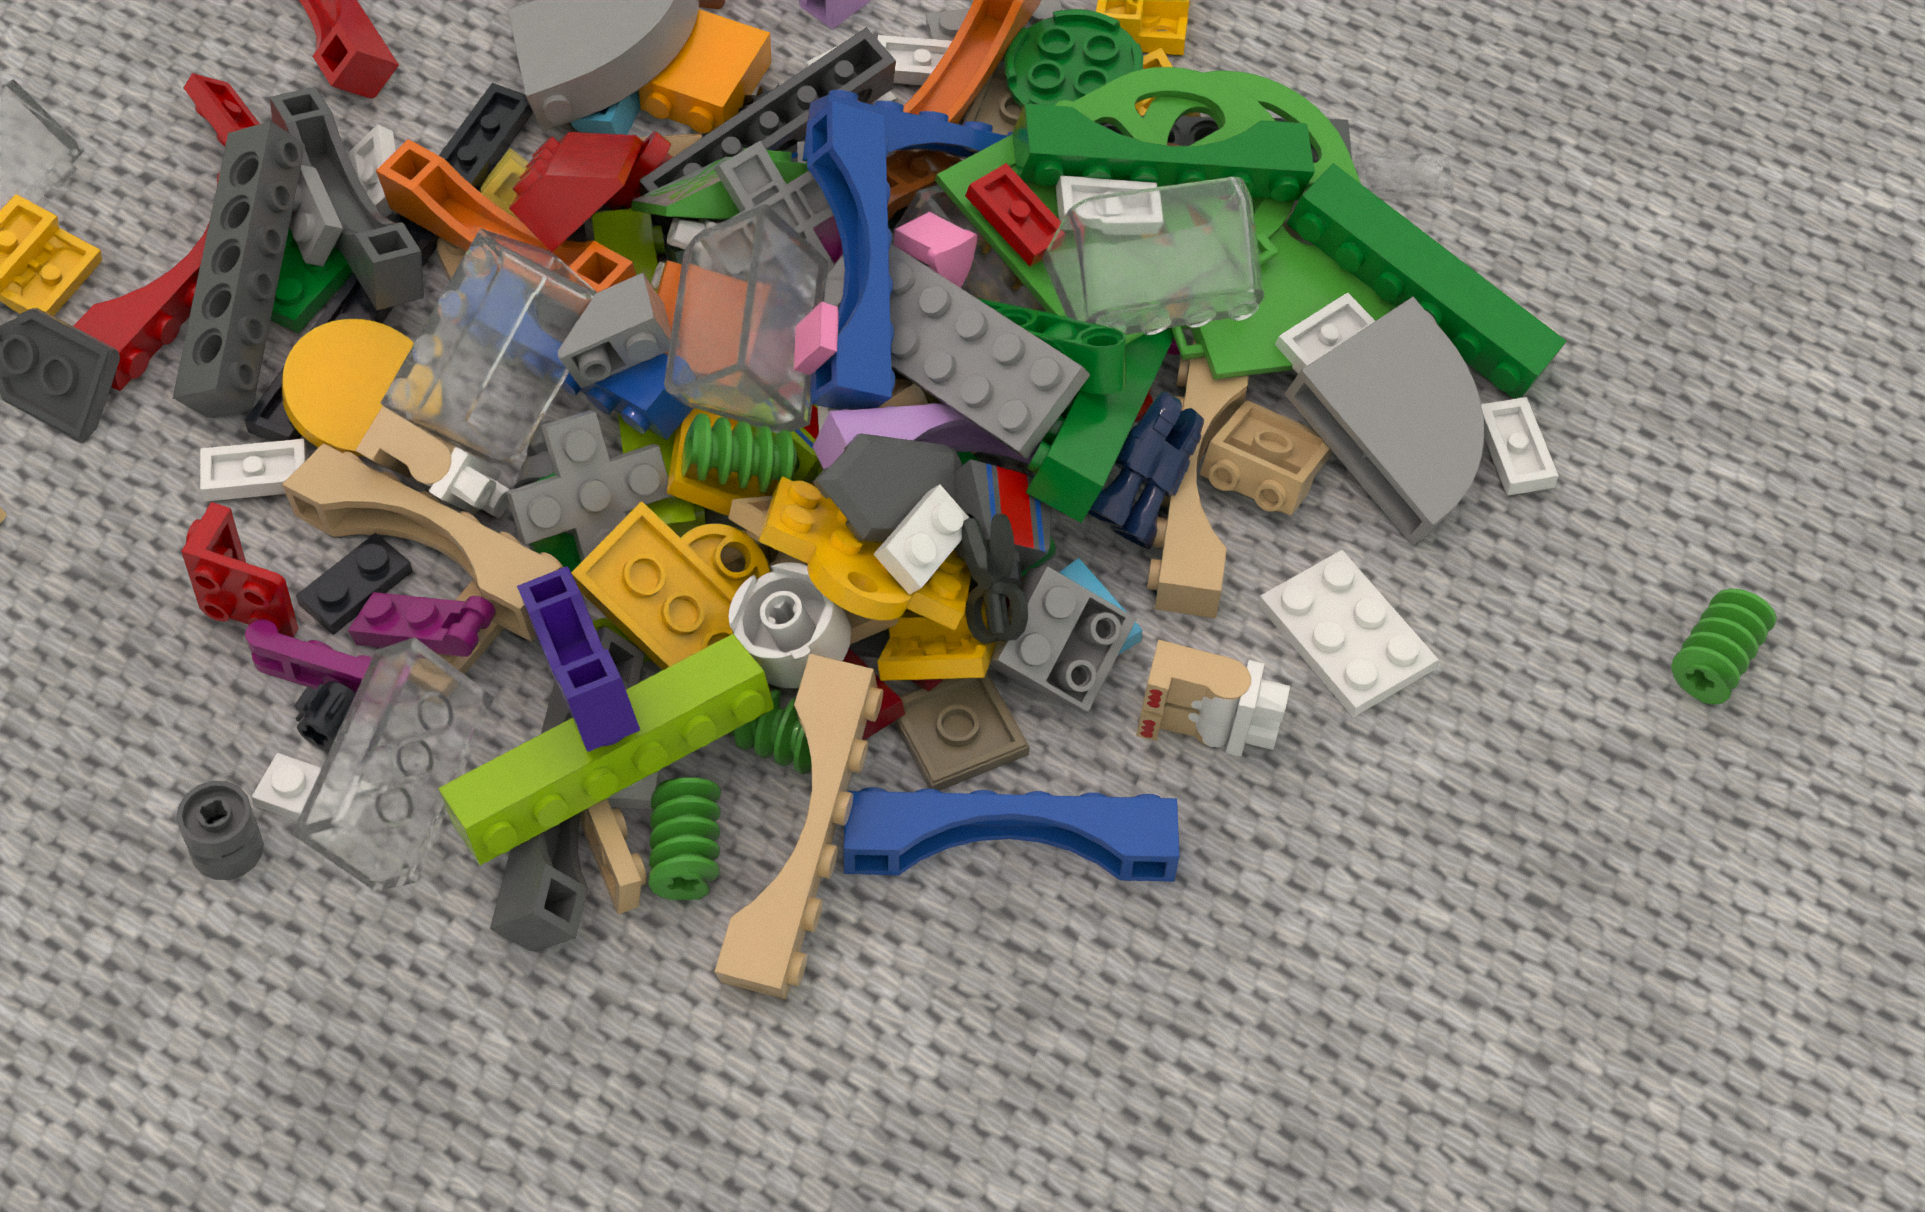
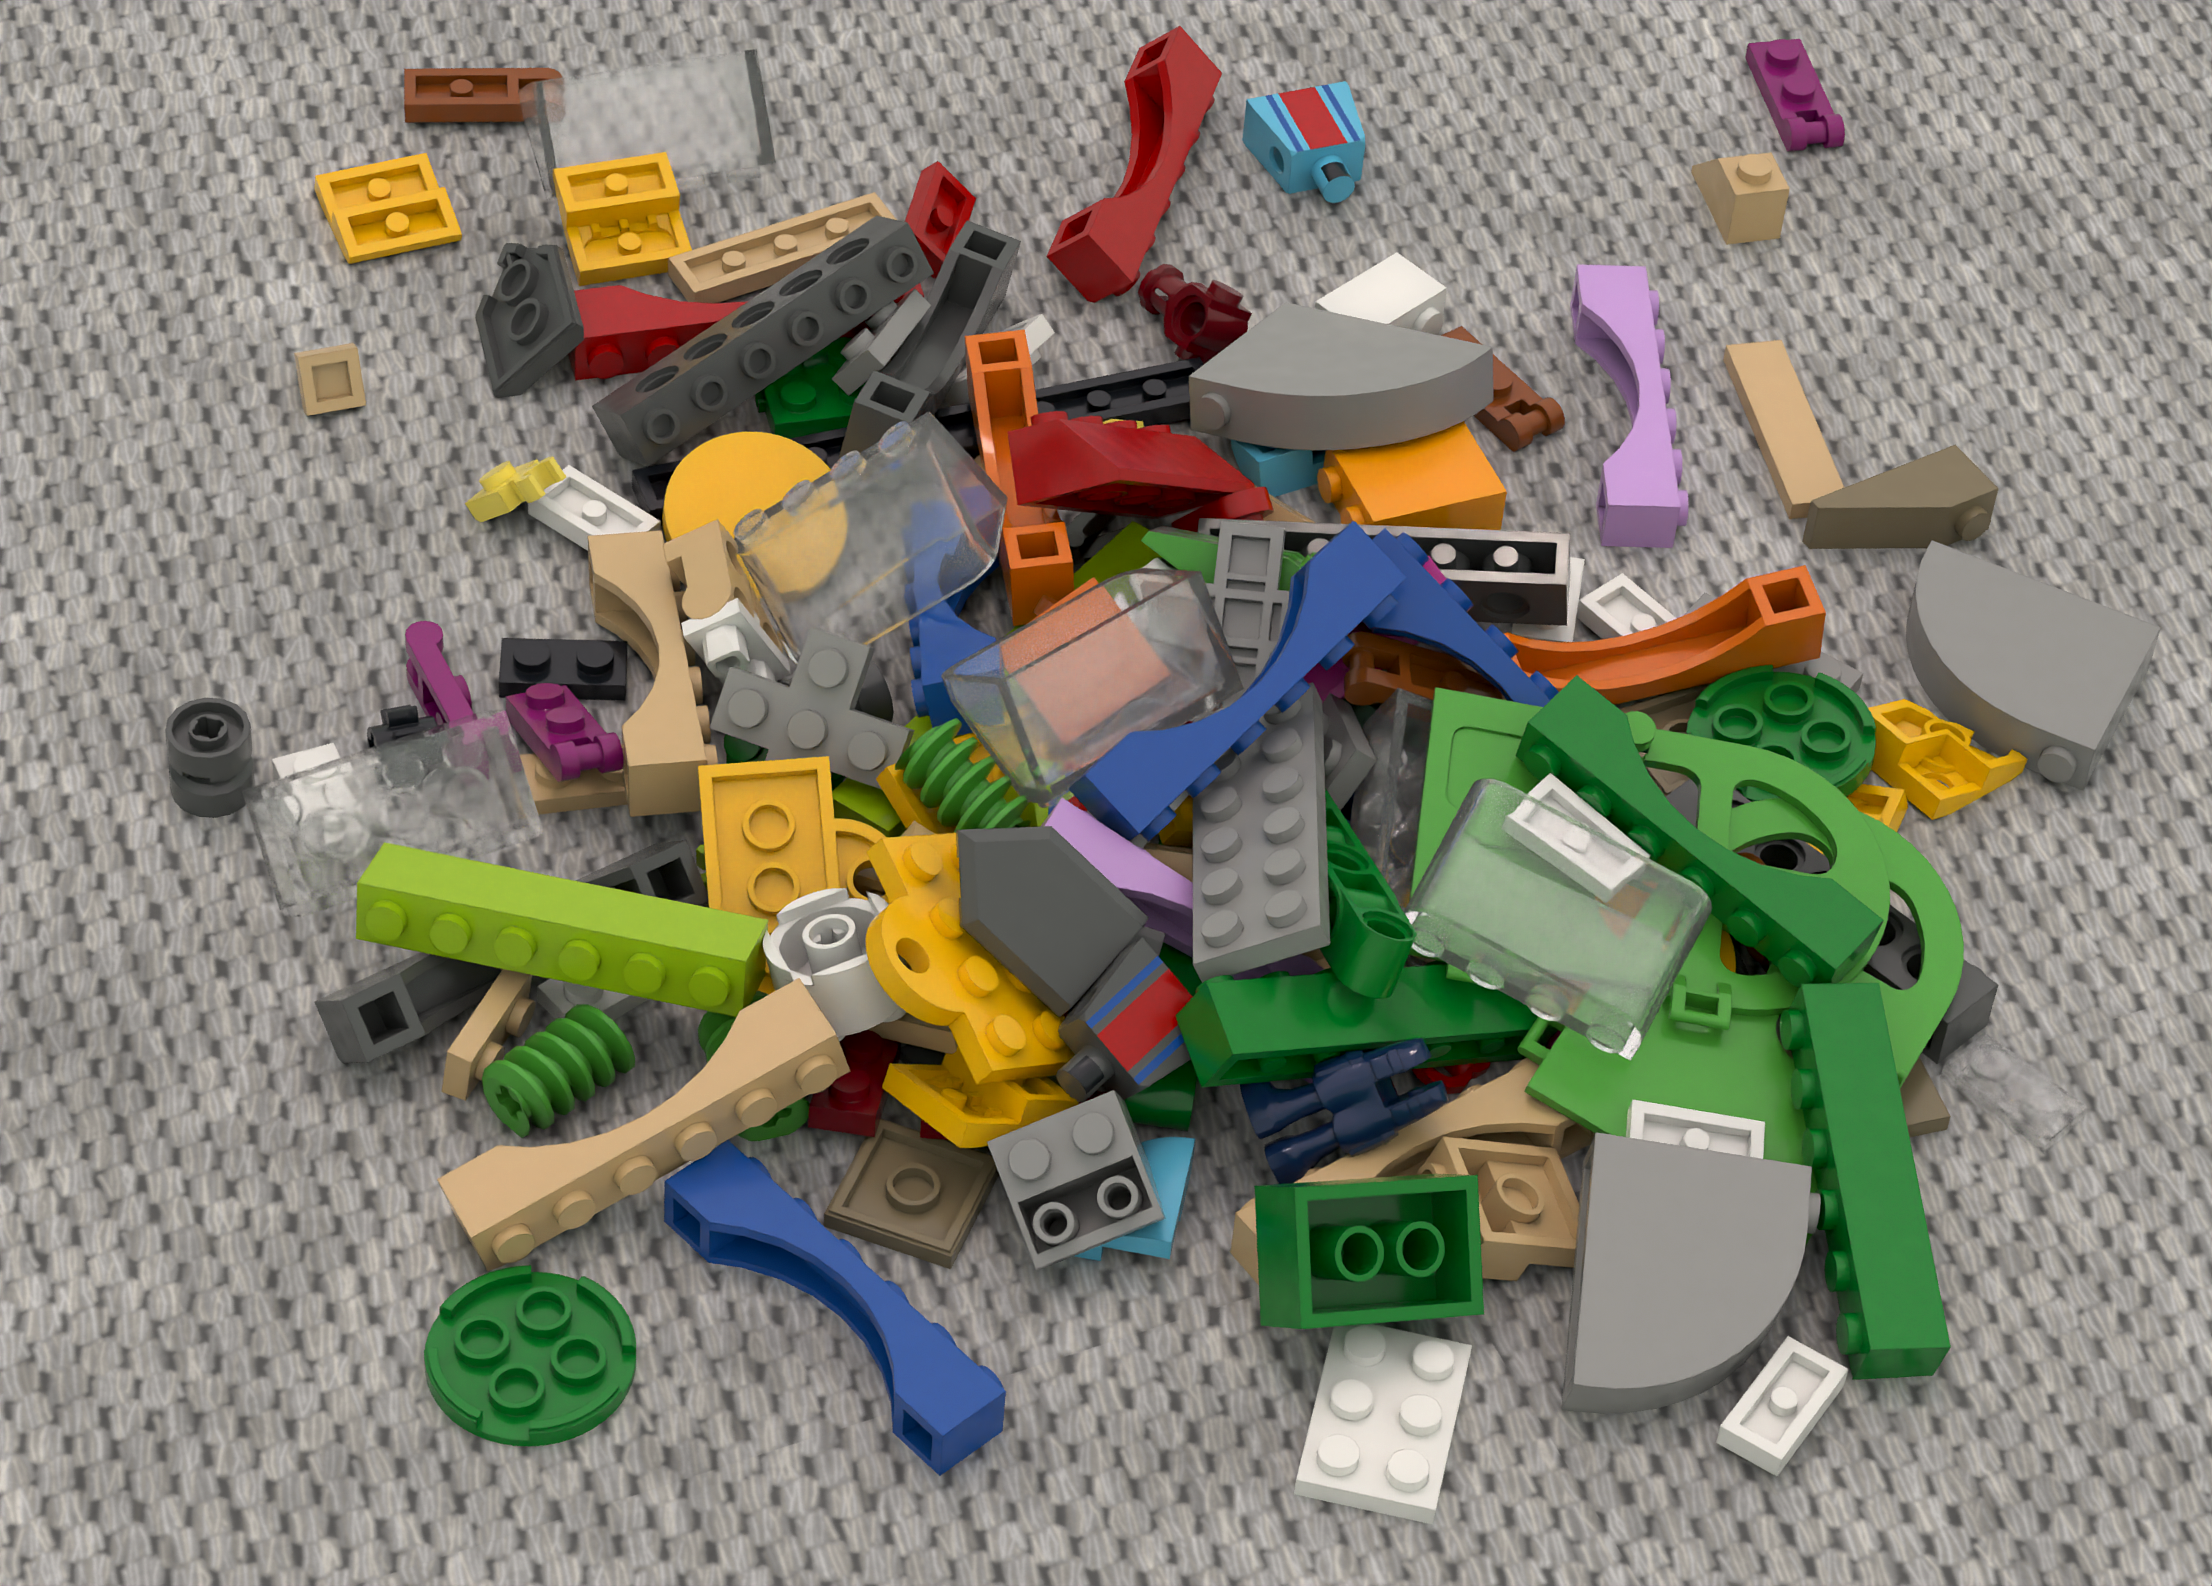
camera: 45 degrees right, 10 degrees down
(154, 205) = (768, 253): none -> tan plate
(183, 491) = (509, 486): none -> light yellow plate
(226, 583) = (458, 563): red bracket -> none
(453, 58) = (1195, 316): none -> dark red connector
(578, 660) = (577, 852): dark purple arch -> none
(616, 332) = (971, 598): light grey slope -> none
(816, 338) = (1117, 724): bright pink tile -> none
(878, 1028) = (530, 1356): none -> green tile
(923, 539) = (1017, 969): white plate -> none
(938, 244) = (1356, 753): bright pink tile -> none
(991, 572) = (1054, 1050): pearl dark grey piece -> none
(1014, 212) = (1463, 752): red plate -> none
(1211, 699) = (1147, 1337): hips -> none
(1263, 542) = (1369, 1250): none -> green brick

